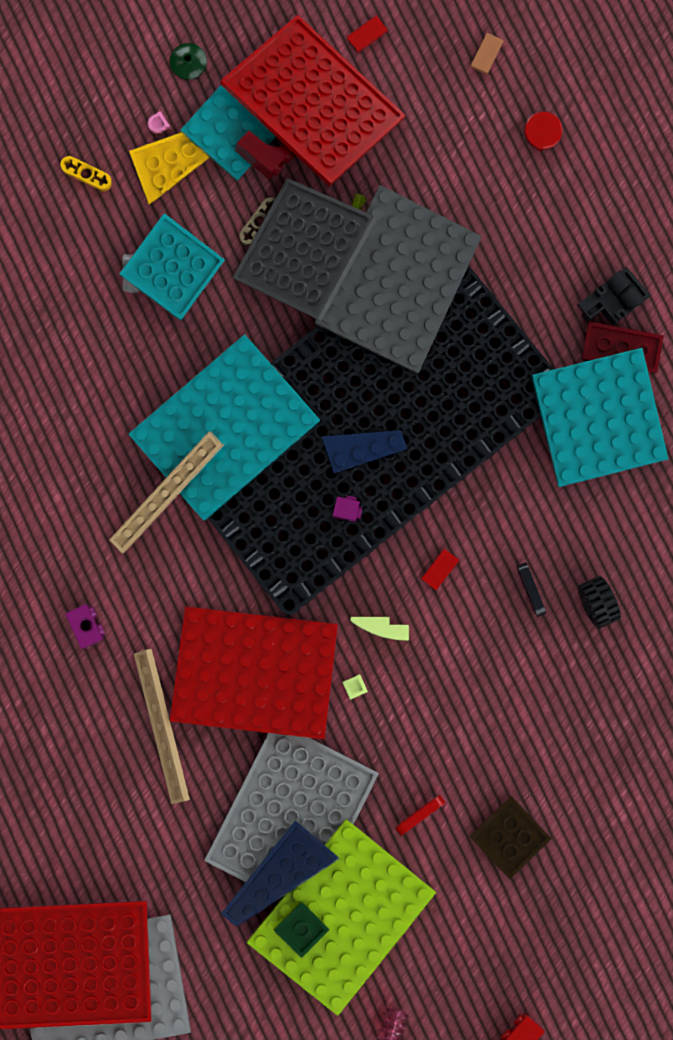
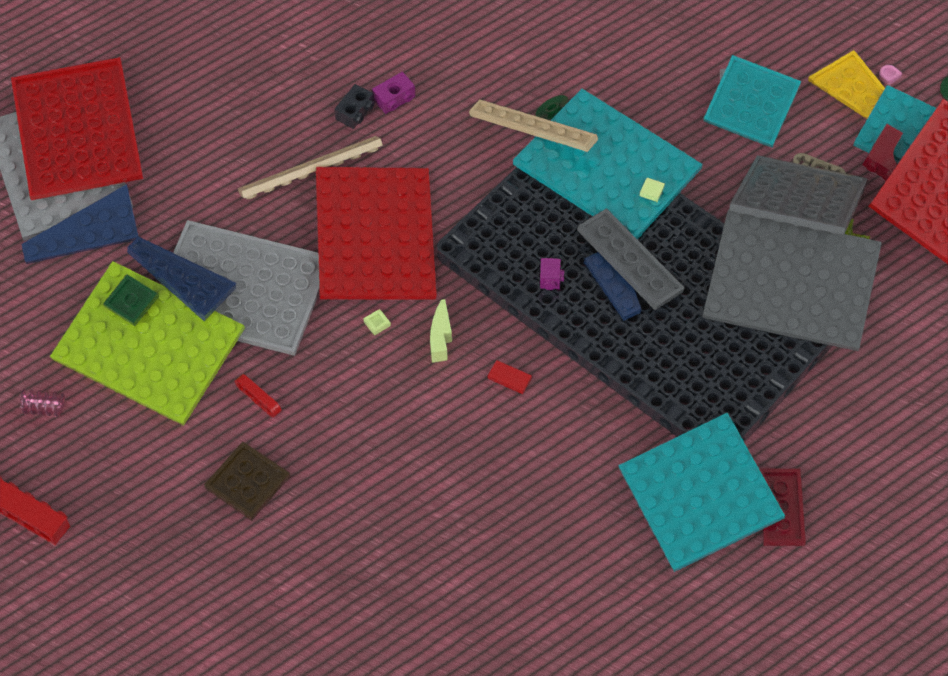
camera: 80 degrees right, 25 degrees down
(91, 673) = (354, 106): none -> black brick
(100, 174) = (825, 21): yellow beam -> none
(133, 472) = (552, 107): none -> dark green dish
(193, 956) = (96, 226): none -> dark blue wing
(271, 390) = (652, 189): none -> yellowish green tile
(346, 428) = (630, 259): none -> dark grey plate
(531, 589) = (506, 459): black beam -> none
(599, 602) = (504, 516): black tyre -> none
(614, 298) = (833, 491): black plate -> none

